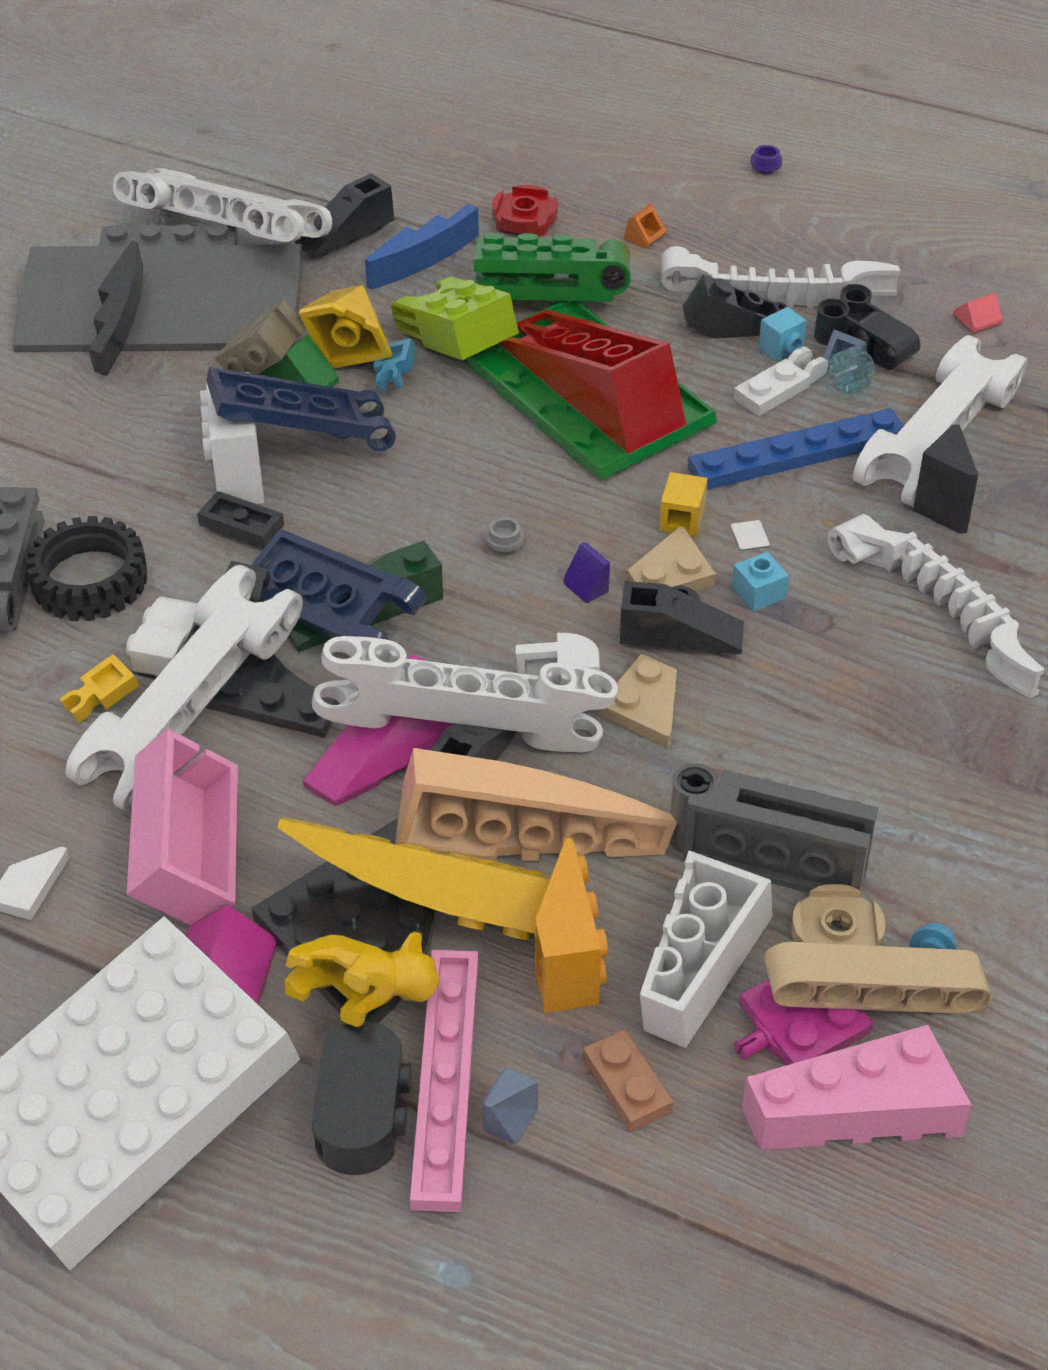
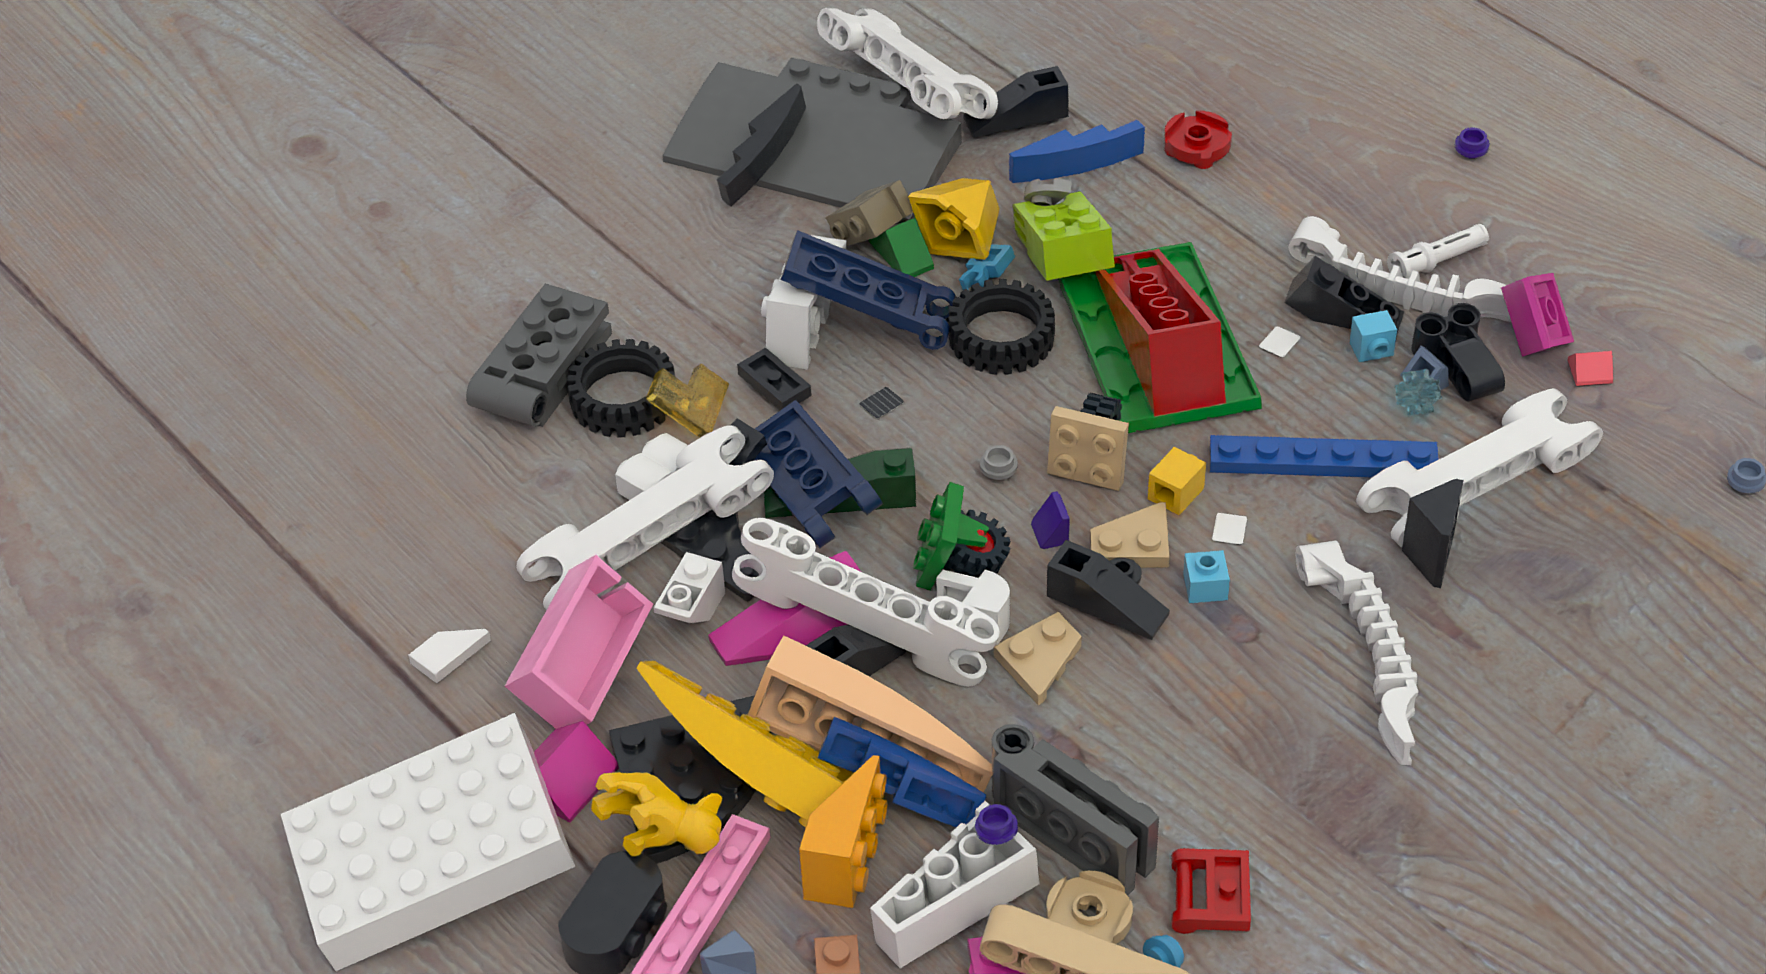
camera: 25 degrees right, 0 degrees up
(102, 685) = (585, 500): yellow plate -> none
(168, 561) = (693, 404): none -> clear yellow tile
(270, 737) = (693, 590): none -> white slope
(356, 513) = (881, 402): none -> black sticker
(422, 283) = (1047, 194): none -> light grey plate
(434, 387) = (1001, 354): none -> black tyre
(510, 614) = (958, 540): none -> green plate
(552, 267) = (1180, 208): green hinge -> none
(590, 491) = (1089, 442): none -> tan plate
(610, 855) = (909, 777): none -> blue slope
(644, 227) = (1305, 186): orange slope -> none
(697, 362) = (1279, 341): none -> white sticker
(722, 868) = (996, 825): none -> dark purple plate
(780, 381) = (1347, 384): white hinge -> none
(787, 256) = (1425, 255): none -> white pin
(913, 280) = (1537, 313): none -> dark pink slope
(951, 862) = (1226, 890): none -> red plate

